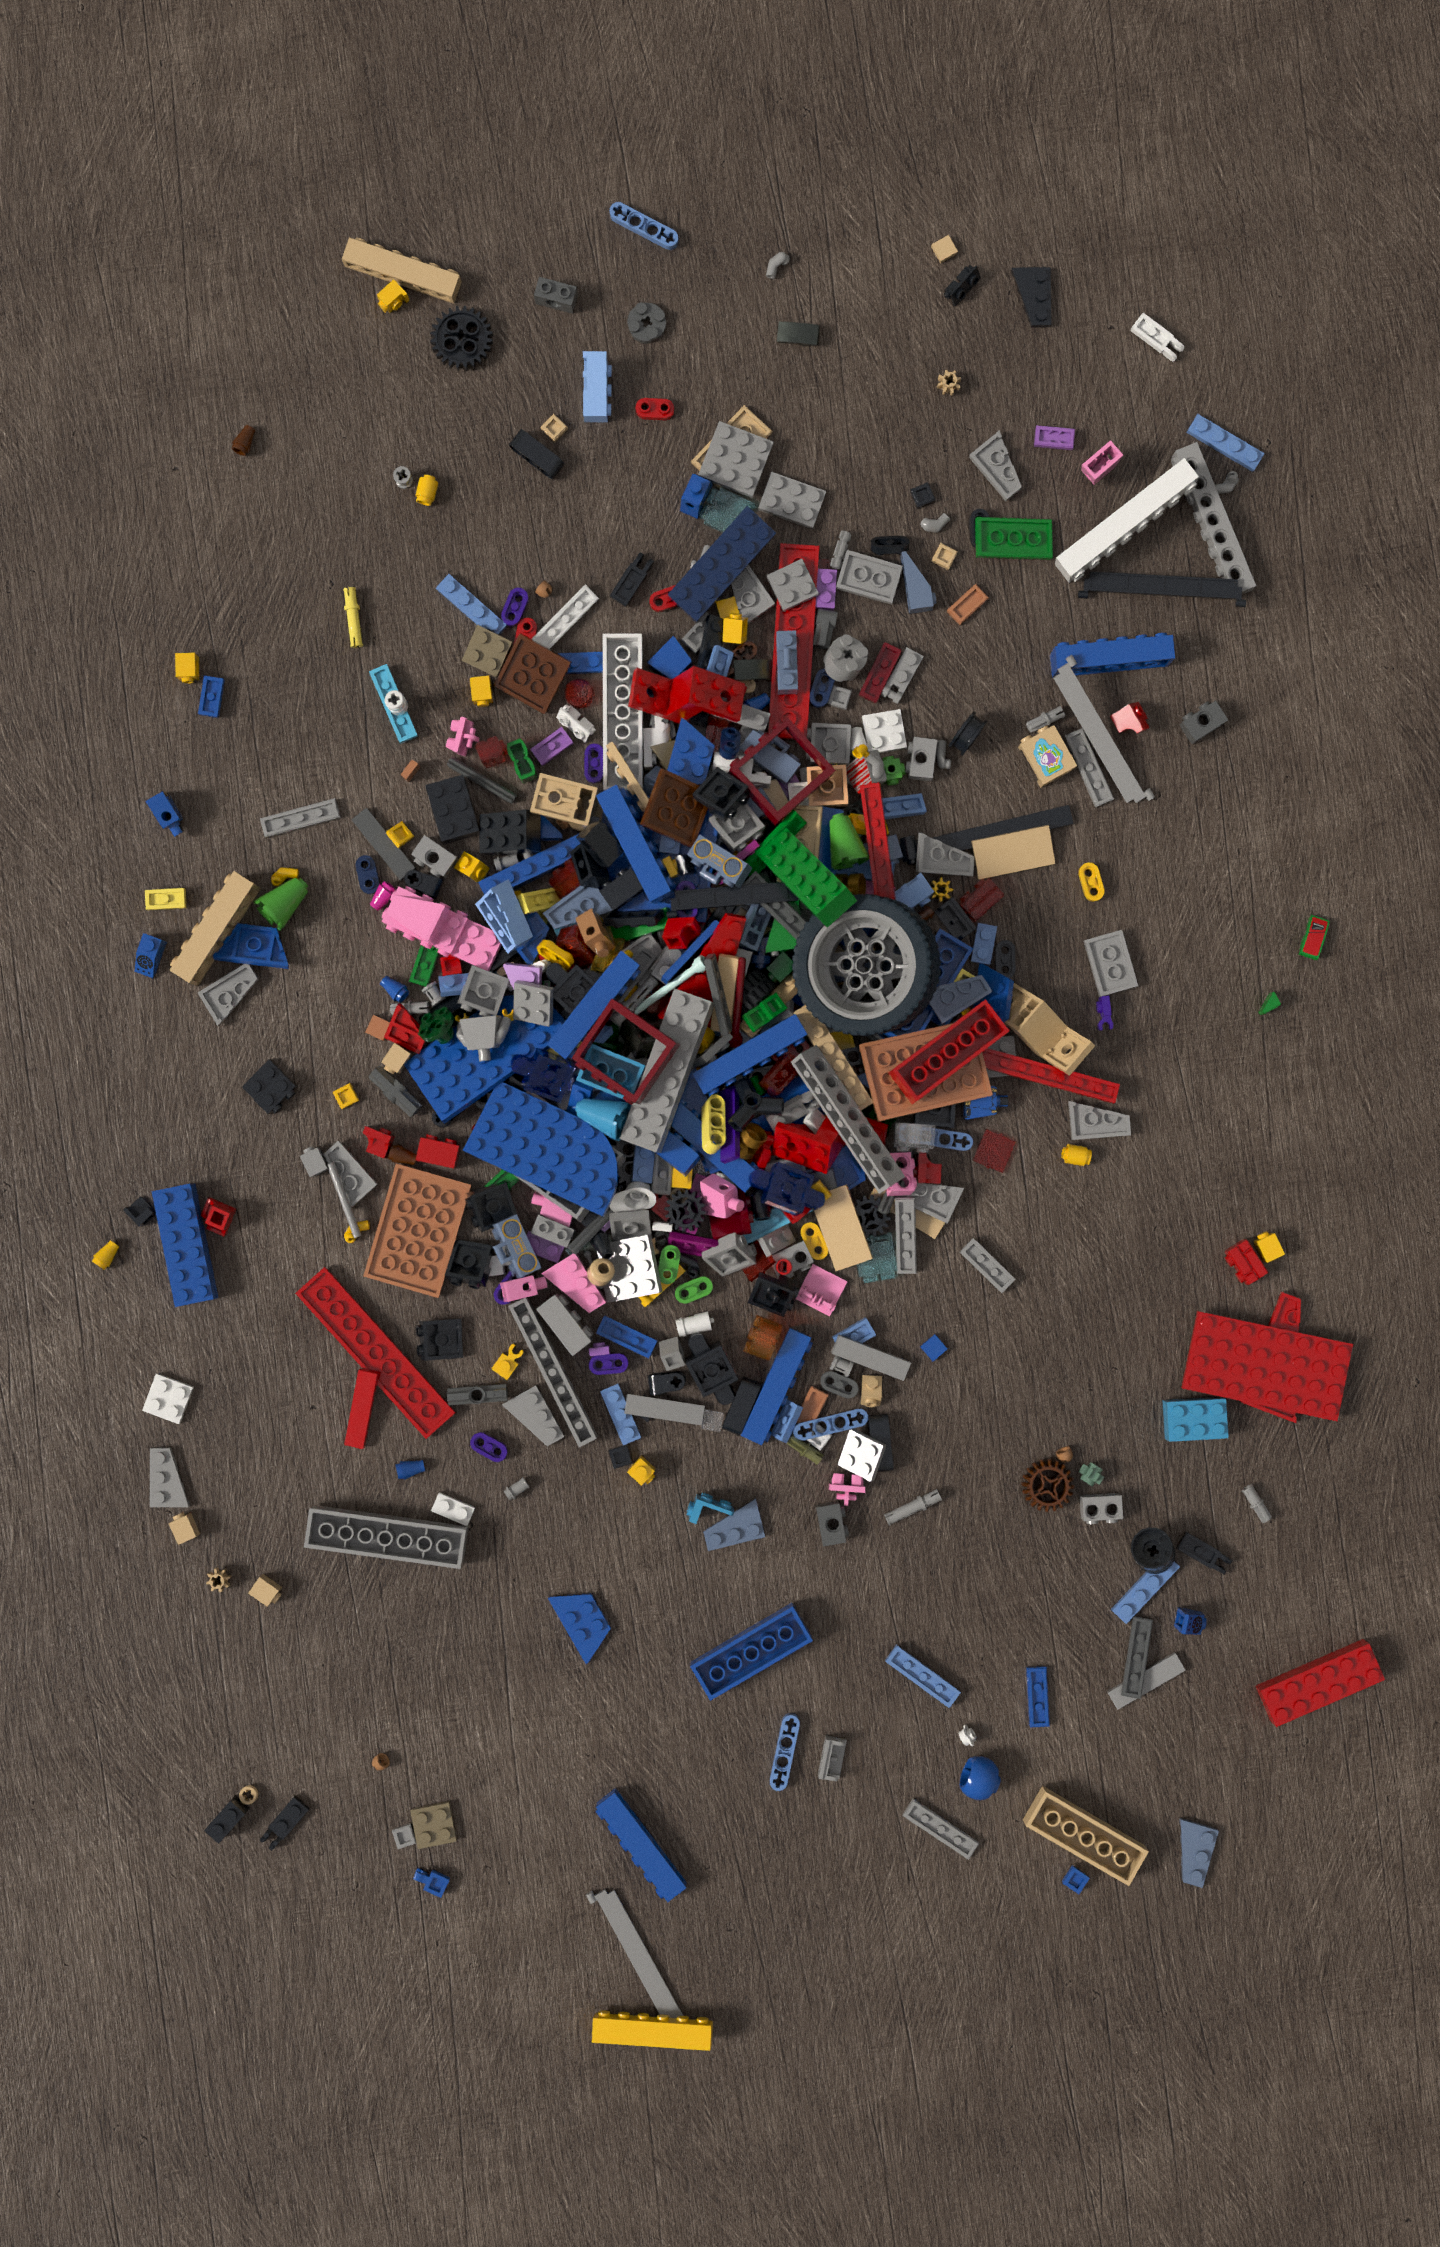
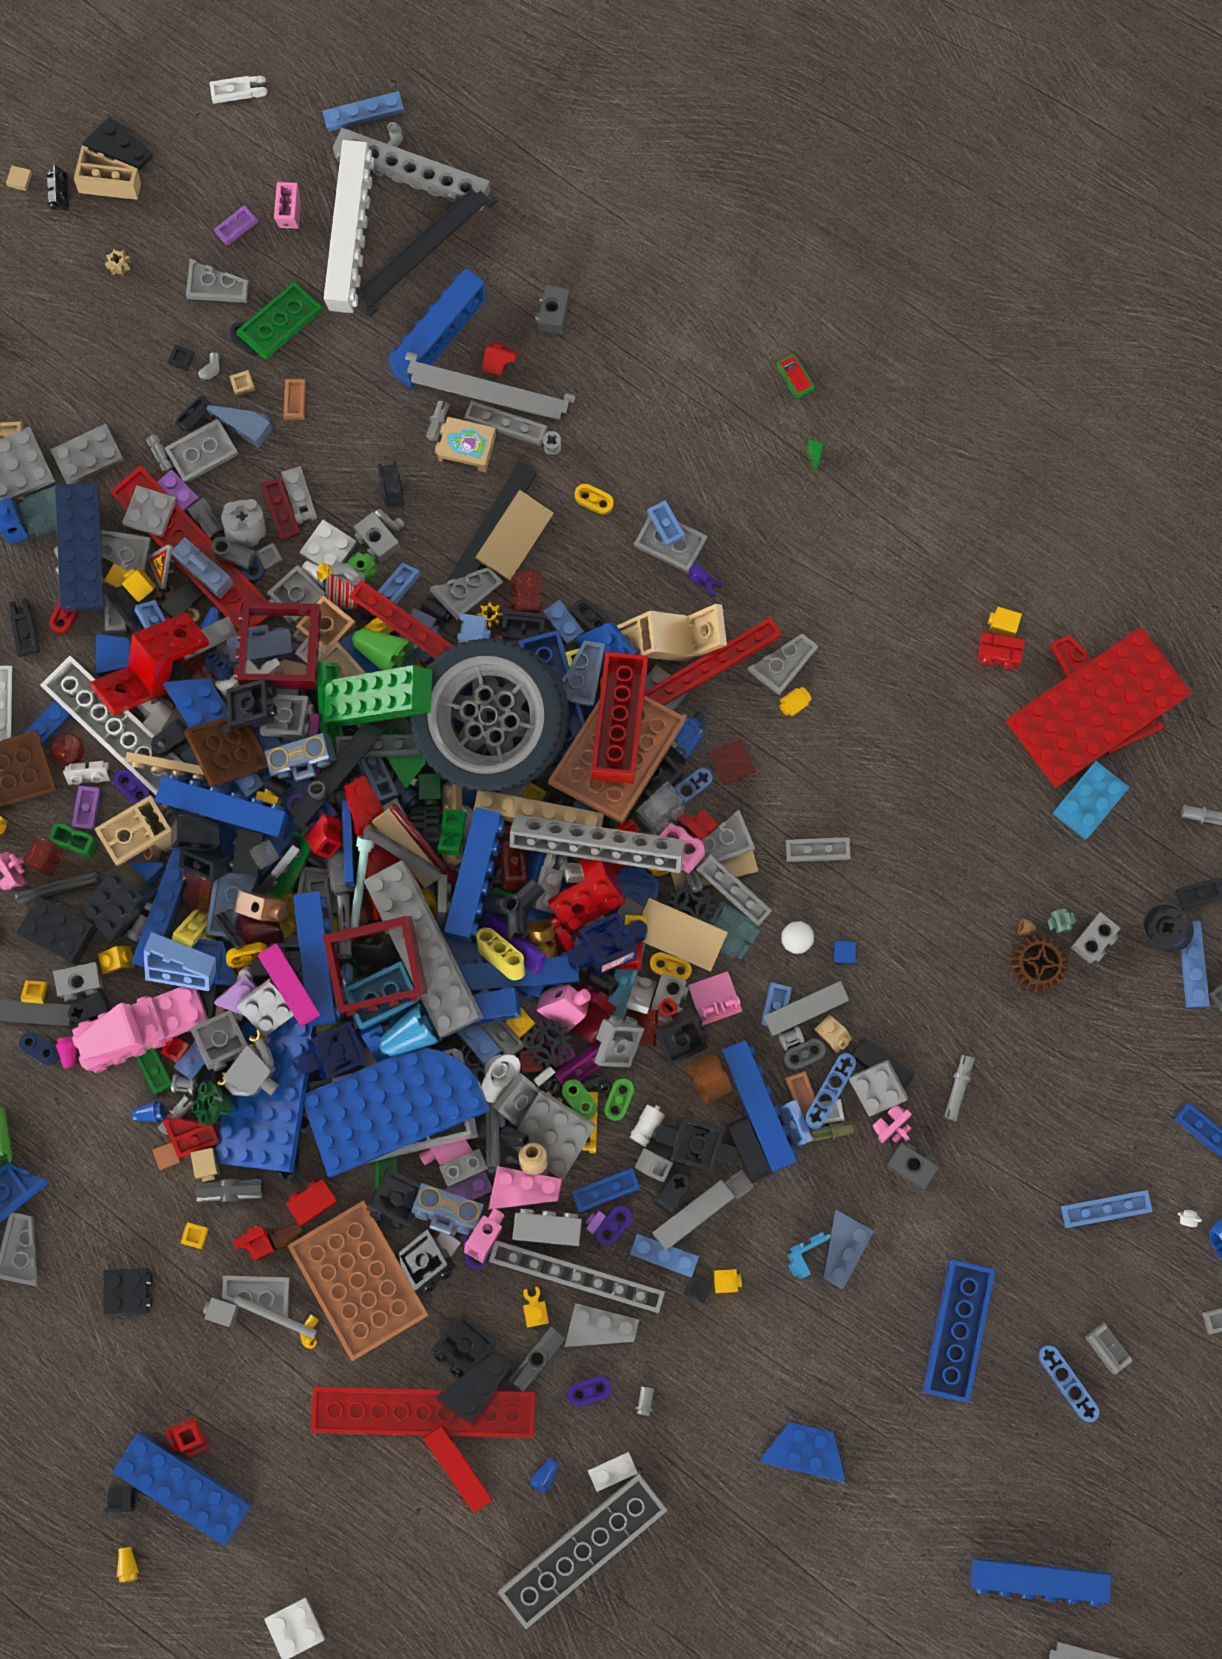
camera: 50 degrees left, 10 degrees down
(419, 1375) = (475, 1390): none -> black wedge
(559, 929) = (229, 930): none -> black axle
(559, 1006) = (288, 984): none -> dark pink beam
(631, 901) = (264, 854): none -> clear tile
(653, 761) = (171, 736): none -> black piece
(708, 894) = (317, 790): none -> dark grey hinge
(763, 629) = (160, 563): none -> piece
(817, 674) = (234, 553): none -> dark grey piece
(914, 1307) = (797, 937): none -> white hair
(1002, 310) = (105, 177): none -> tan wedge
(1108, 811) = (552, 437): none -> light grey bush
(1119, 949) = (665, 523): none -> medium blue plate

